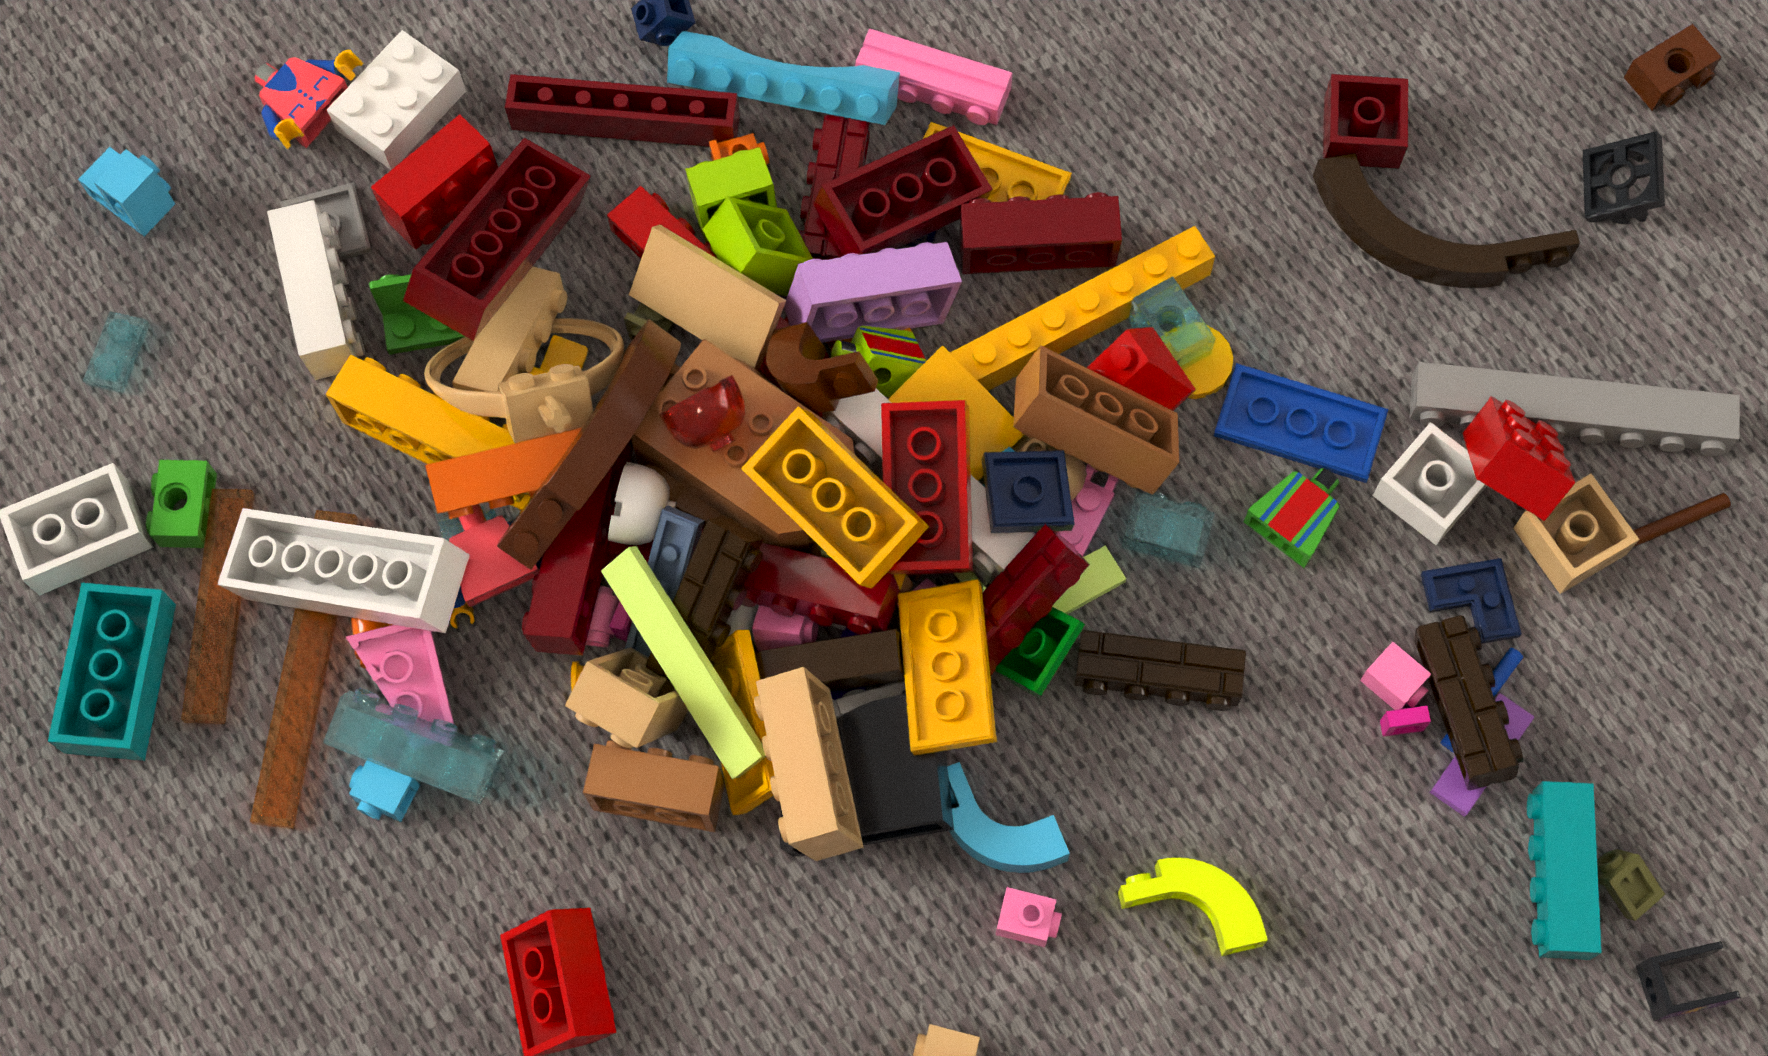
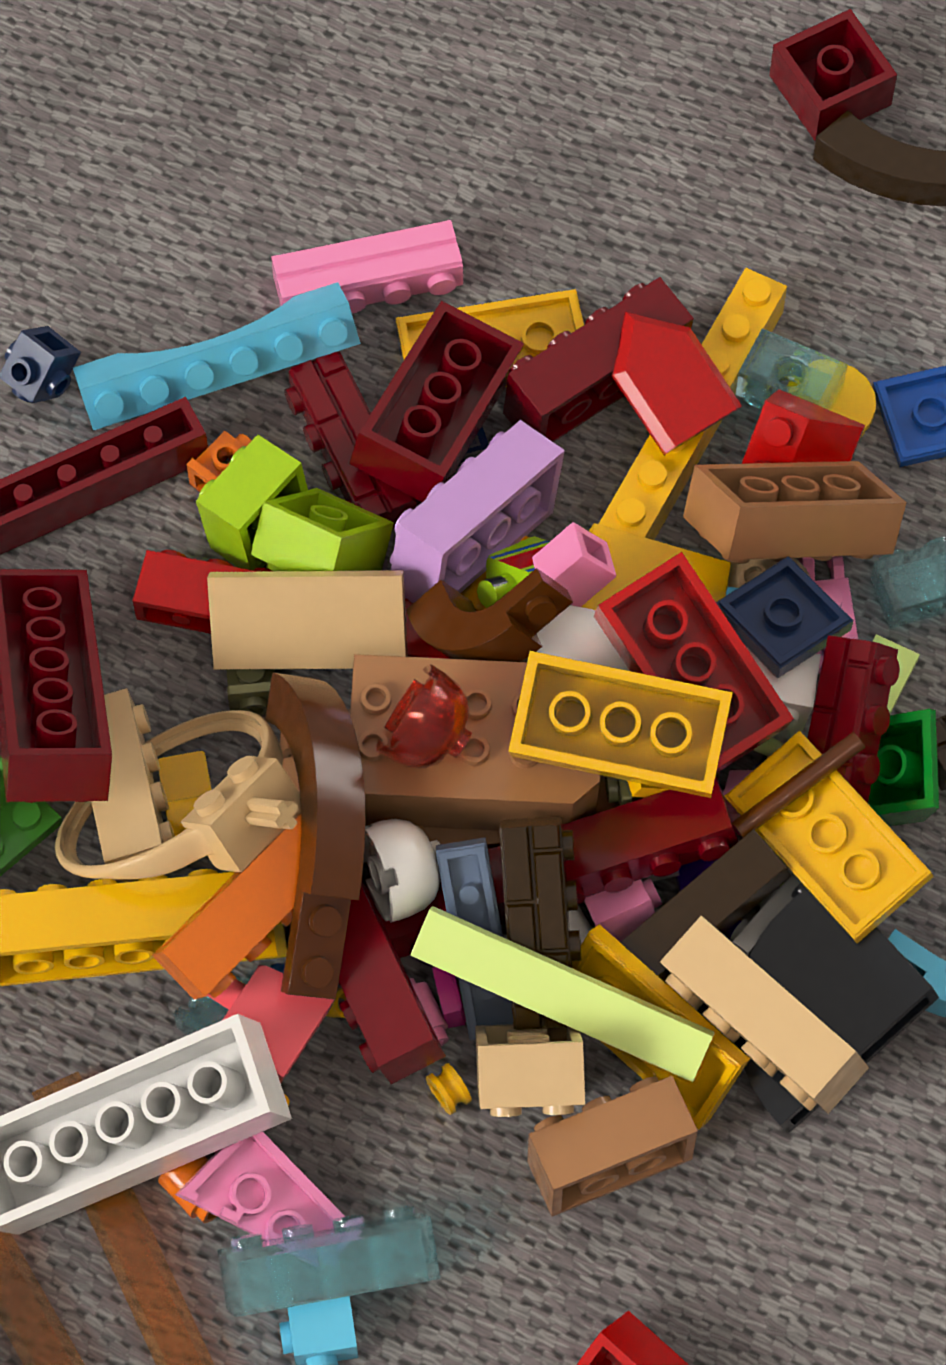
camera: 35 degrees left, 5 degrees down
(901, 366) = (577, 562): none -> bright pink brick
(948, 617) = (799, 784): none -> reddish brown bar
(1073, 275) = (670, 380): none -> red tile

